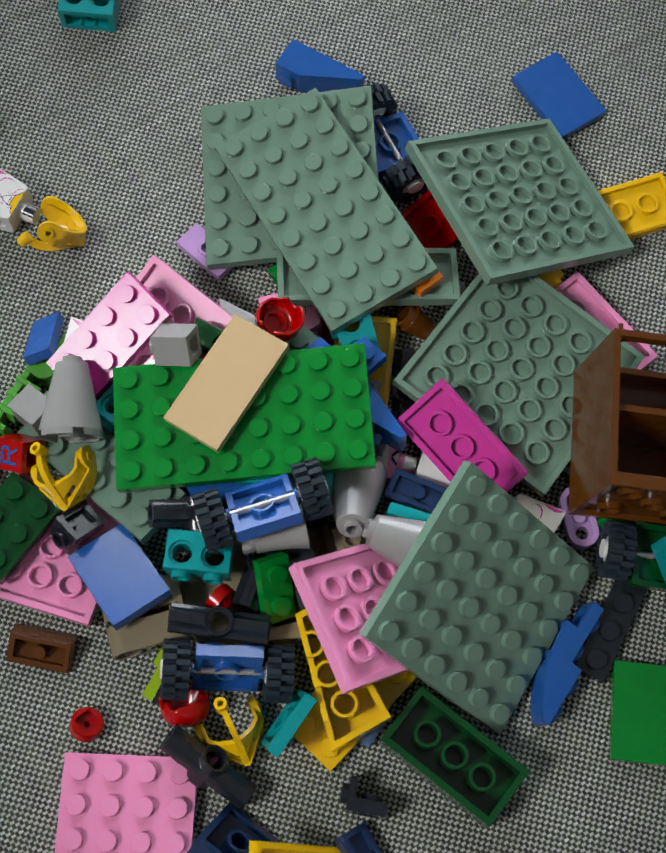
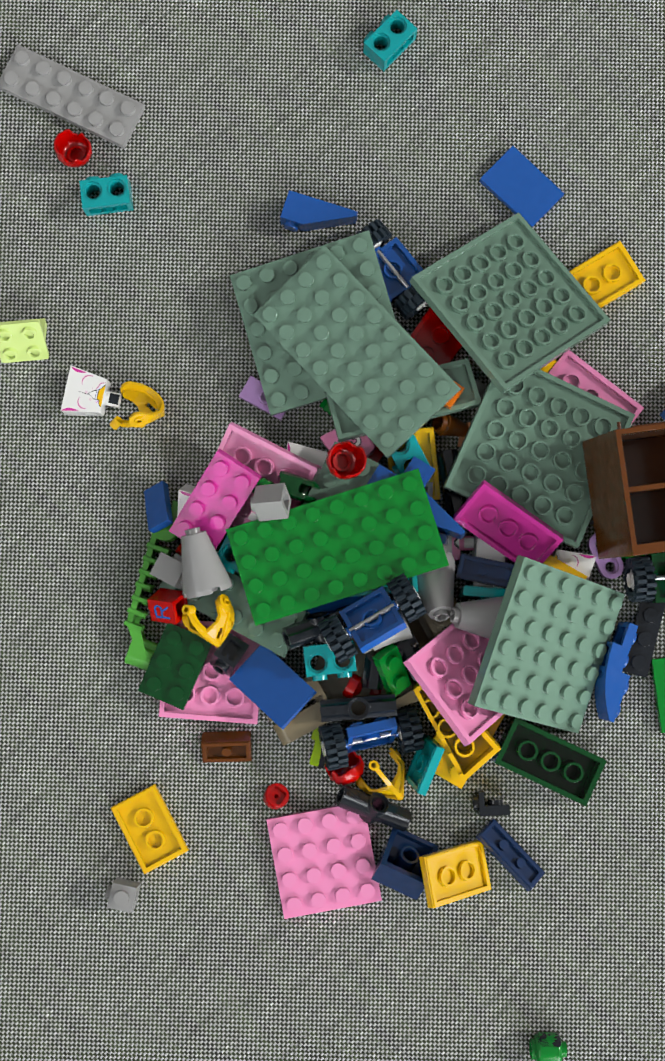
camera: 10 degrees left, 15 degrees up
(226, 383) = (319, 526): tan tile -> none

